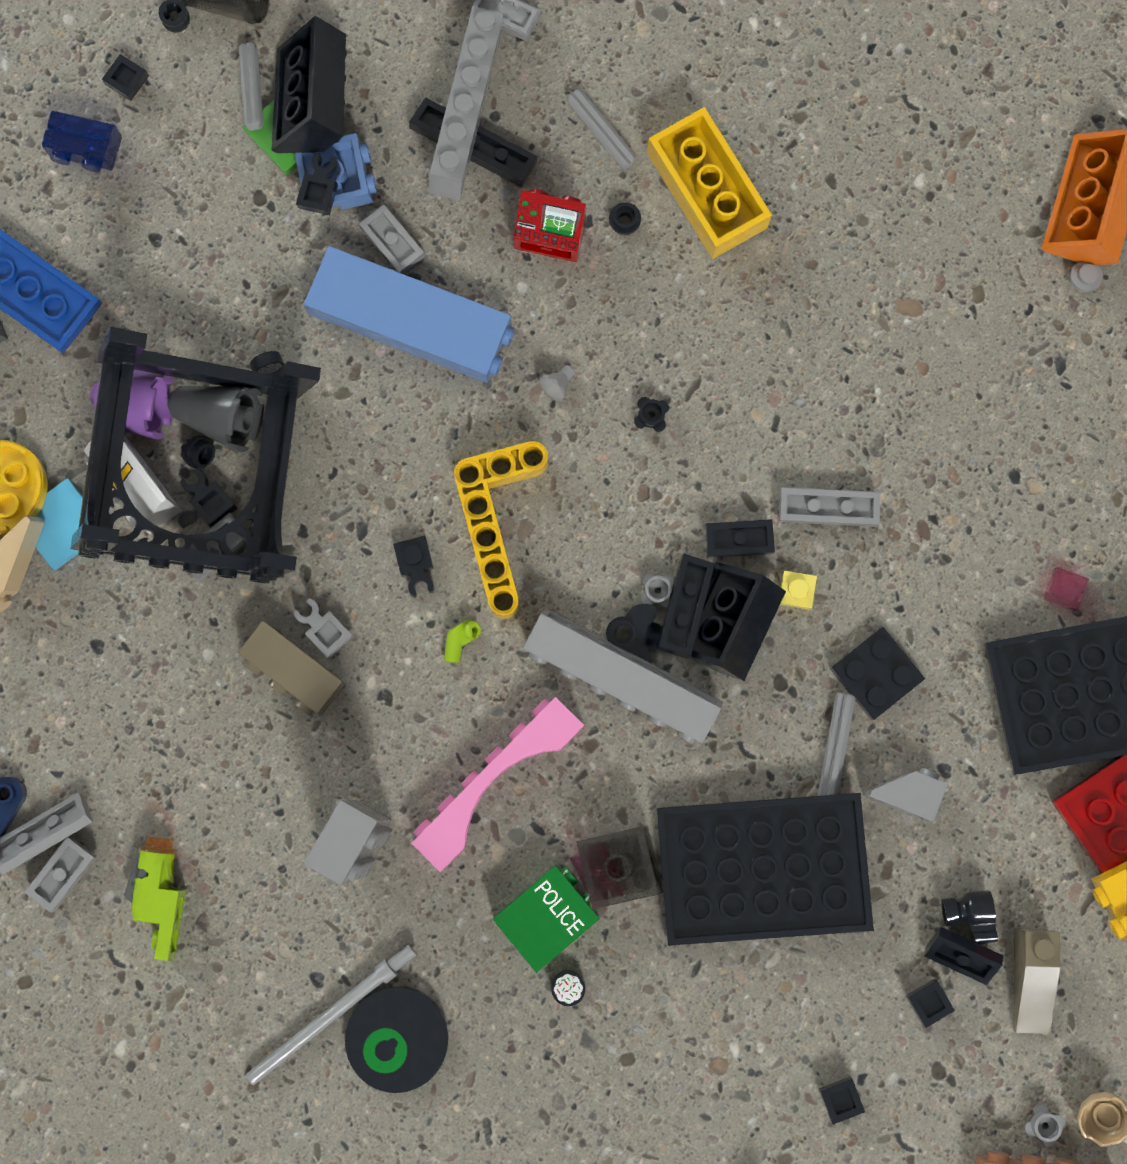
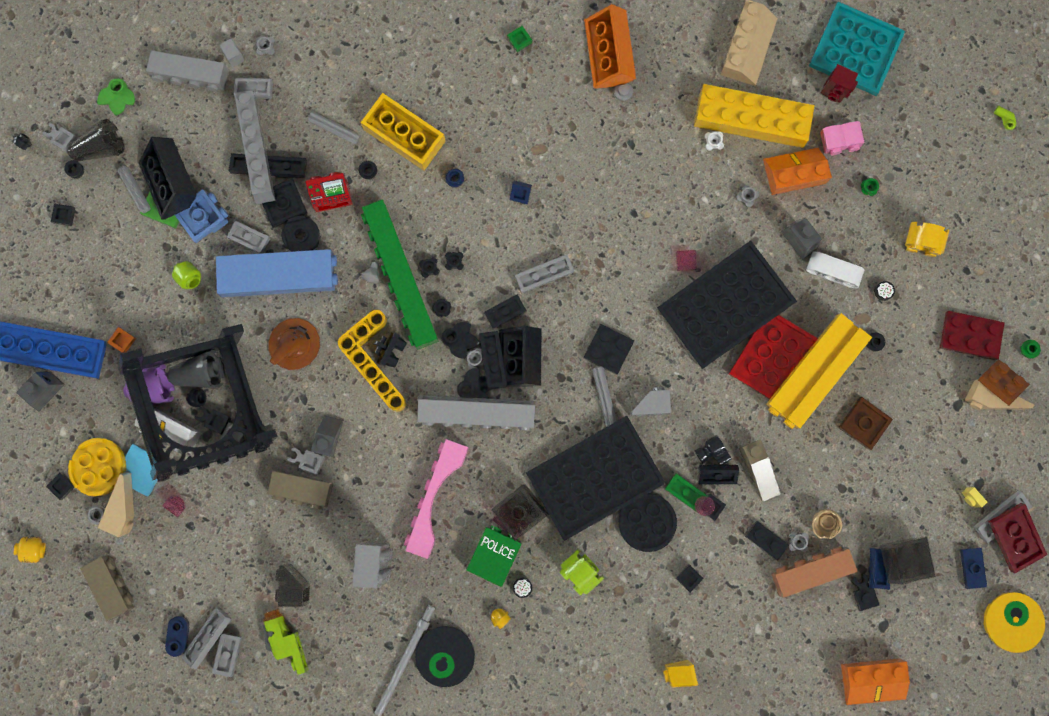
camera: 25 degrees left, 0 degrees up
(81, 141) = (55, 260): clear blue brick -> none
(88, 604) = (174, 505): none -> clear pink plate
(125, 310) = (121, 340): none -> orange plate
(209, 818) = (293, 587): none -> clear smoke slope
(267, 362) = (211, 333): black tile -> none
(270, 255) = (186, 275): none -> lime head
(318, 190) = (196, 229): black plate -> none
(372, 605) = (327, 436): none -> dark grey slope
(386, 437) = (293, 344): none -> dark orange piece
(413, 560) = (338, 402): black plate -> none
(458, 637) = (381, 431): lime arm -> none
(474, 217) = (286, 204): none -> black plate
(490, 263) = (307, 226): none -> black plate
(511, 1019) = (500, 618): none -> yellow plate
(541, 505) = (385, 357): none -> black hips
(601, 404) = (400, 275): none -> green brick
(646, 479) = (442, 303): none -> black plate
(652, 552) = (462, 339): none -> black plate
(673, 1009) = (581, 572): none -> lime brick
(693, 412) = (450, 257): none -> black plate
(762, 285) = (454, 172): none -> dark blue plate
(799, 589) = (548, 324): light yellow plate -> none
(814, 980) = (648, 523): none -> black tile
(850, 361) = (520, 192): none -> dark blue plate
(898, 960) = (684, 491): none -> green plate
(920, 996) = (704, 506): none -> clear pink plate
(957, 119) = (519, 38): none -> green plate
(993, 1099) = (767, 540): none -> black plate

